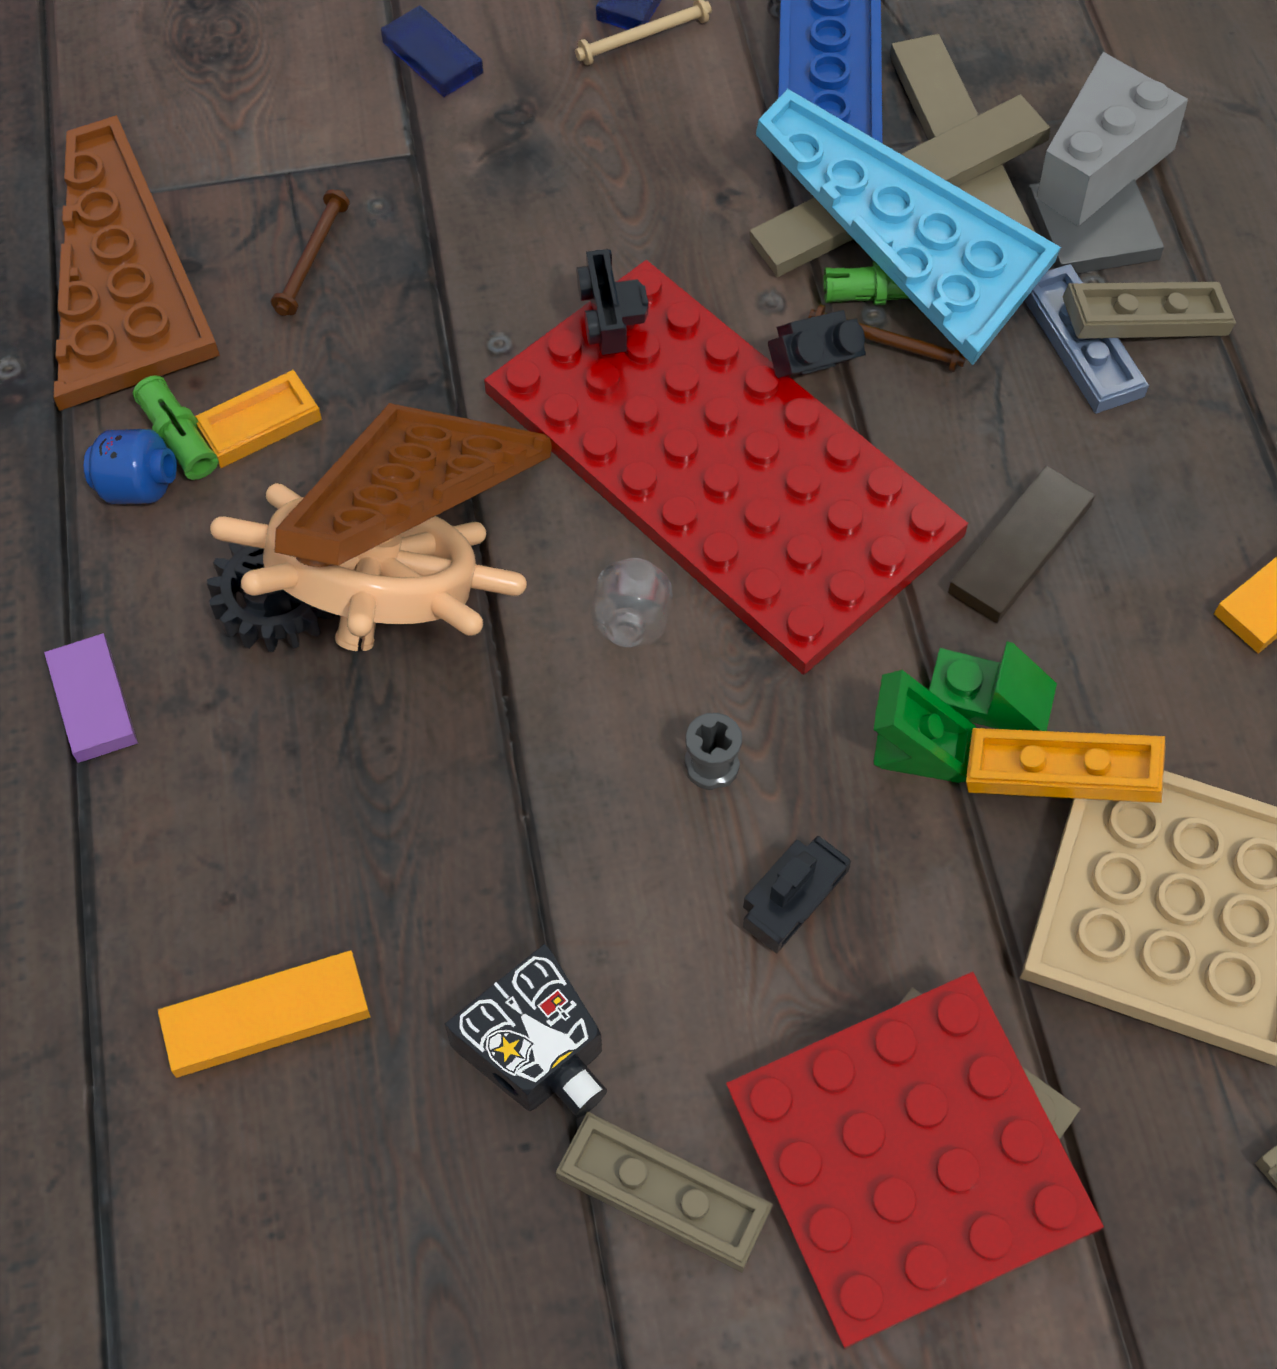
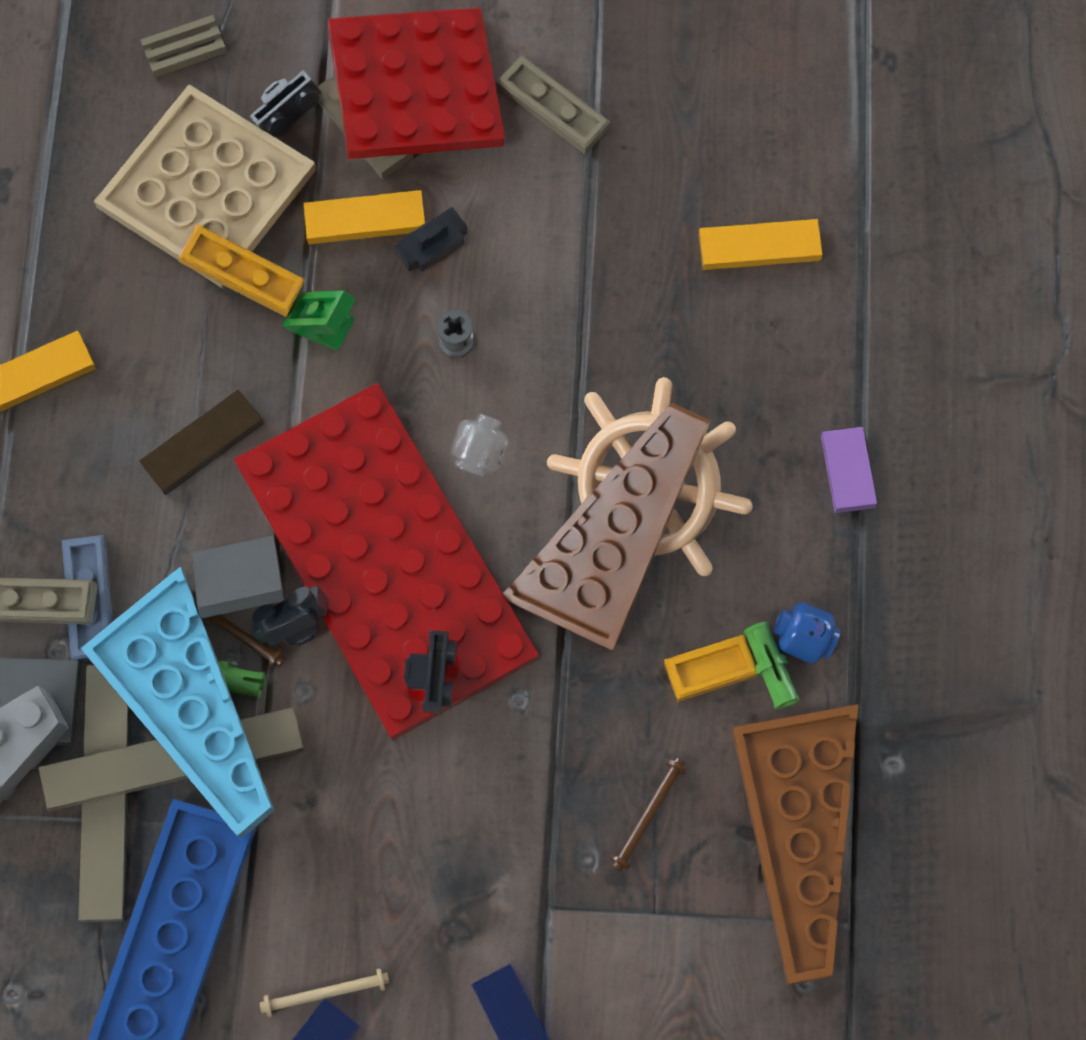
camera: 165 degrees left, 10 degrees up
(266, 615) = (728, 523): black gear -> none
(532, 1036) = (608, 190): black torso -> none
(901, 375) = (237, 576): none -> dark grey tile
(913, 915) = (363, 217): none -> light orange tile
(995, 694) = (264, 342): green slope -> none
(1114, 1062) = (285, 103): none -> black piece

